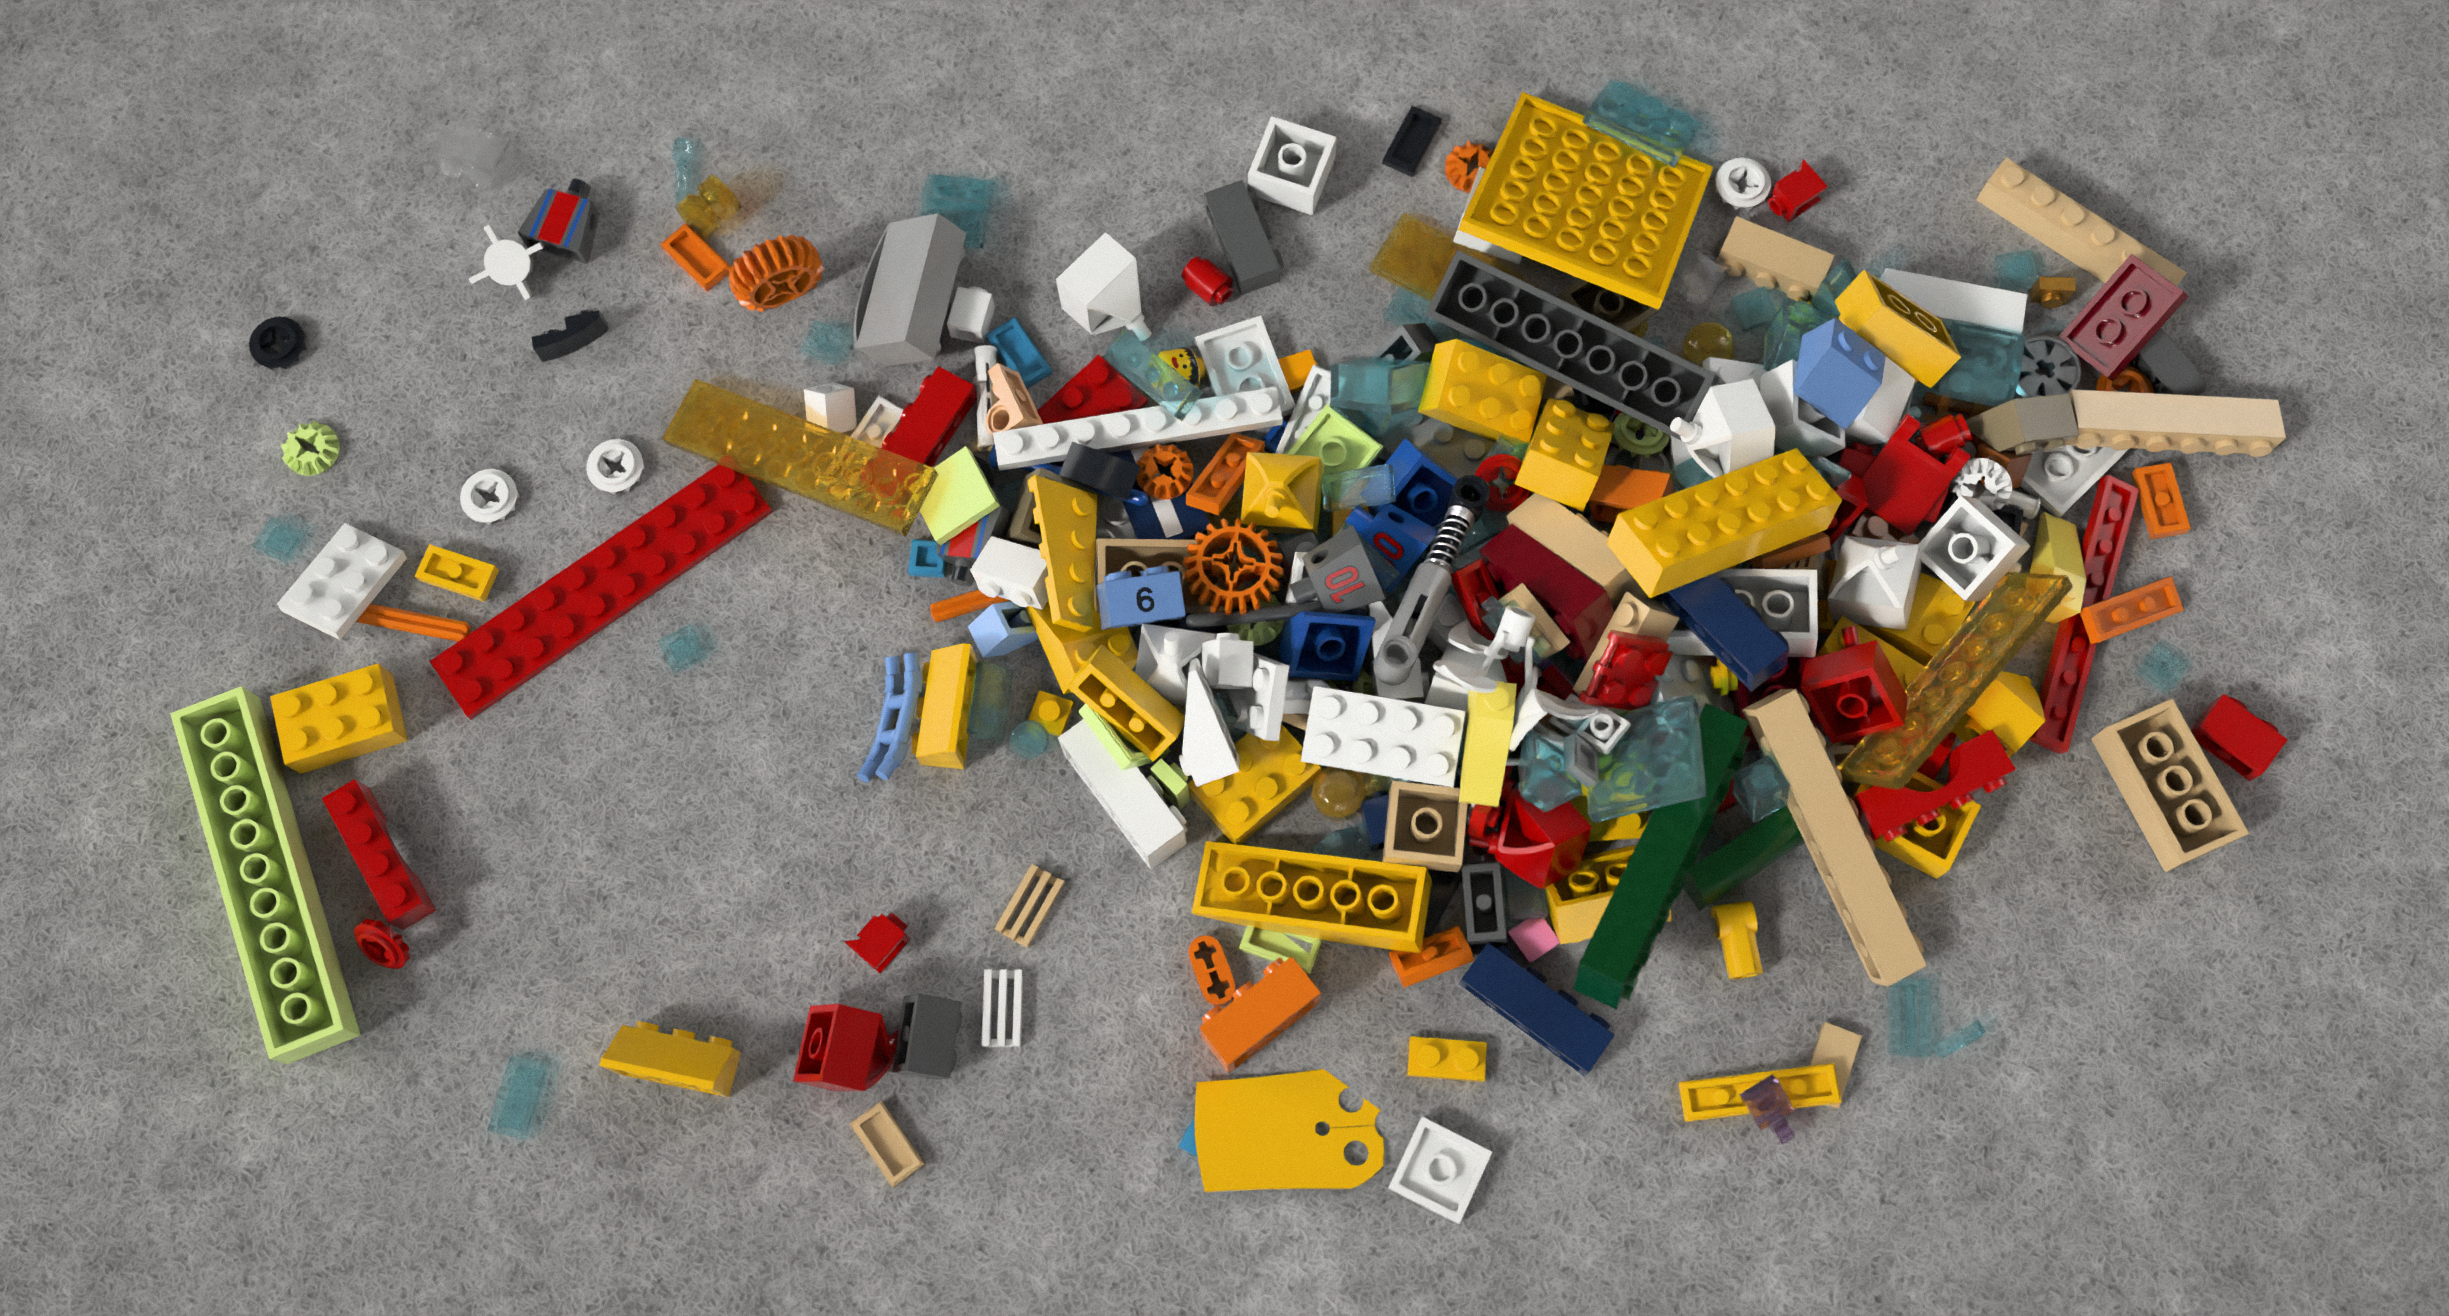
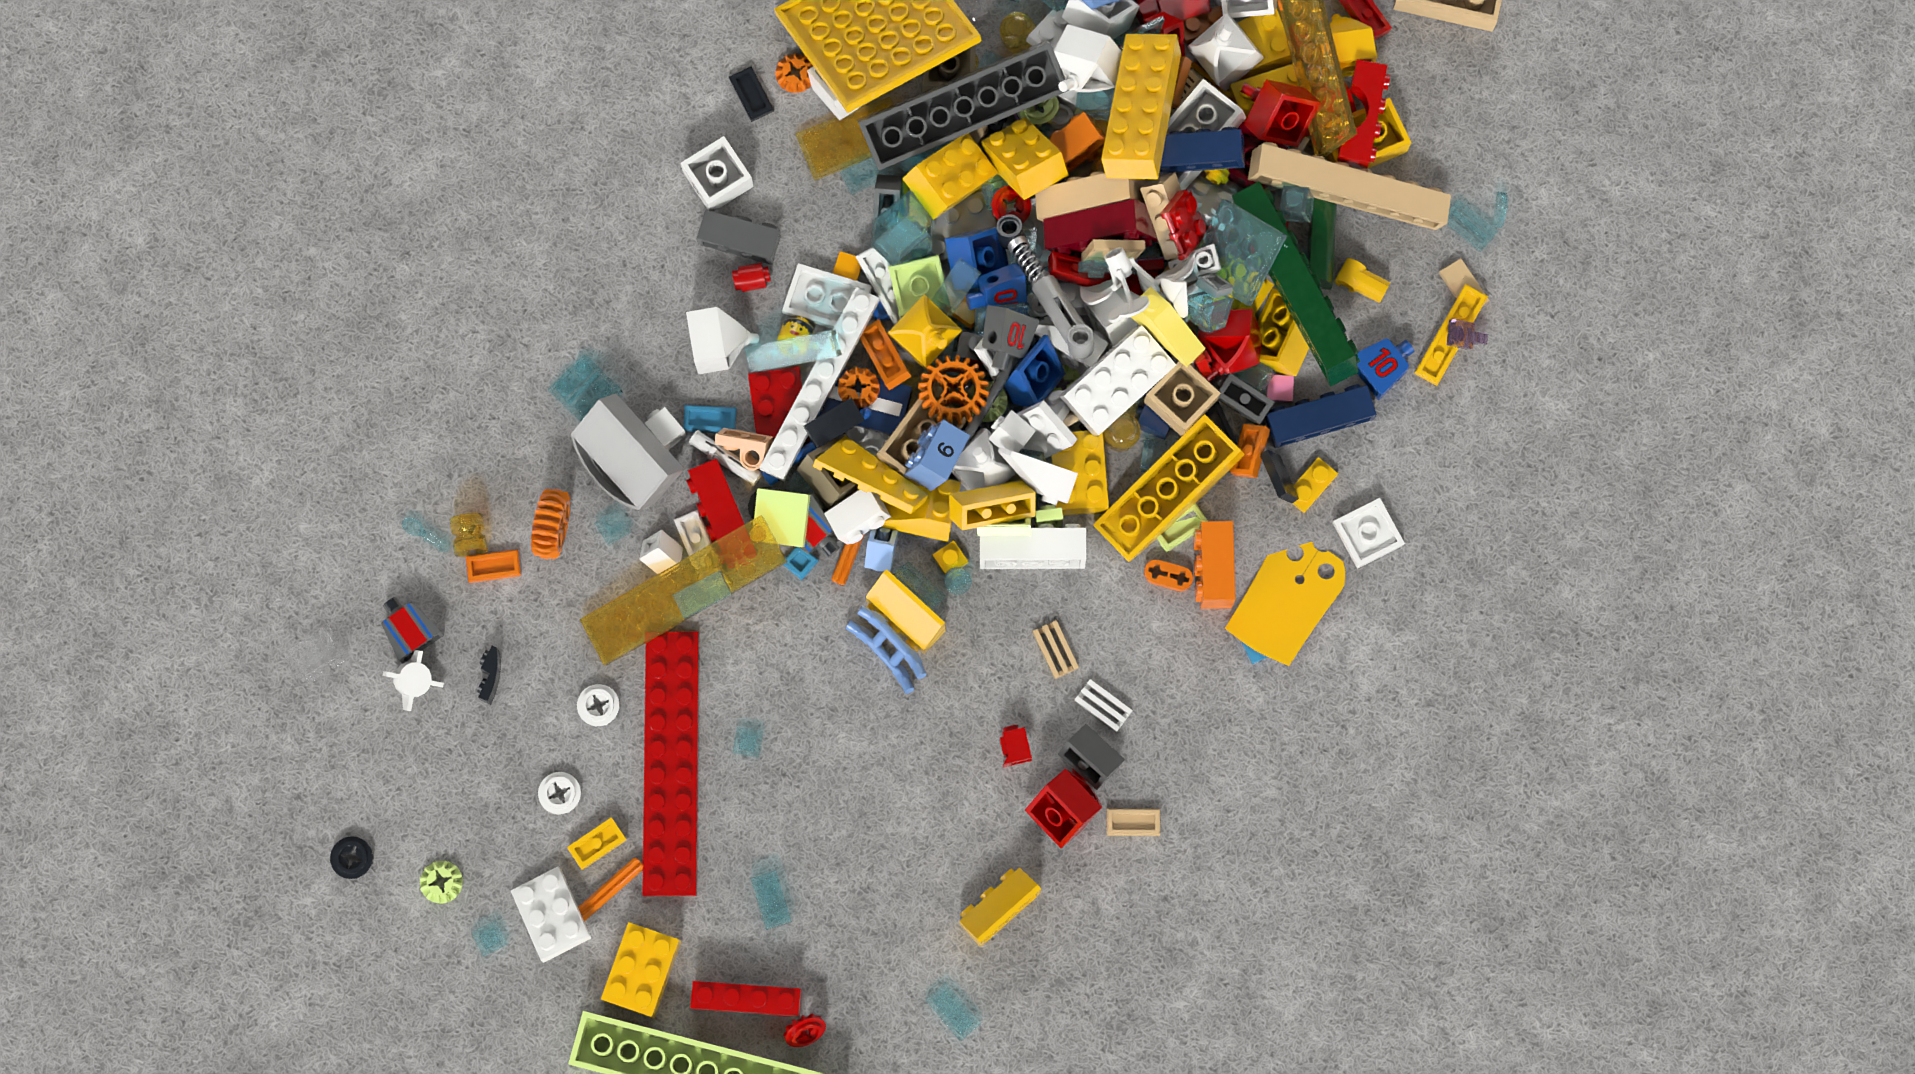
camera: 55 degrees left, 5 degrees up
(515, 801) = (771, 900): none -> clear light blue plate
(802, 475) = (702, 594): none -> clear light blue tile
(1424, 1012) = (1279, 476): none -> black tile
(1656, 1037) = (1383, 365): none -> blue torso

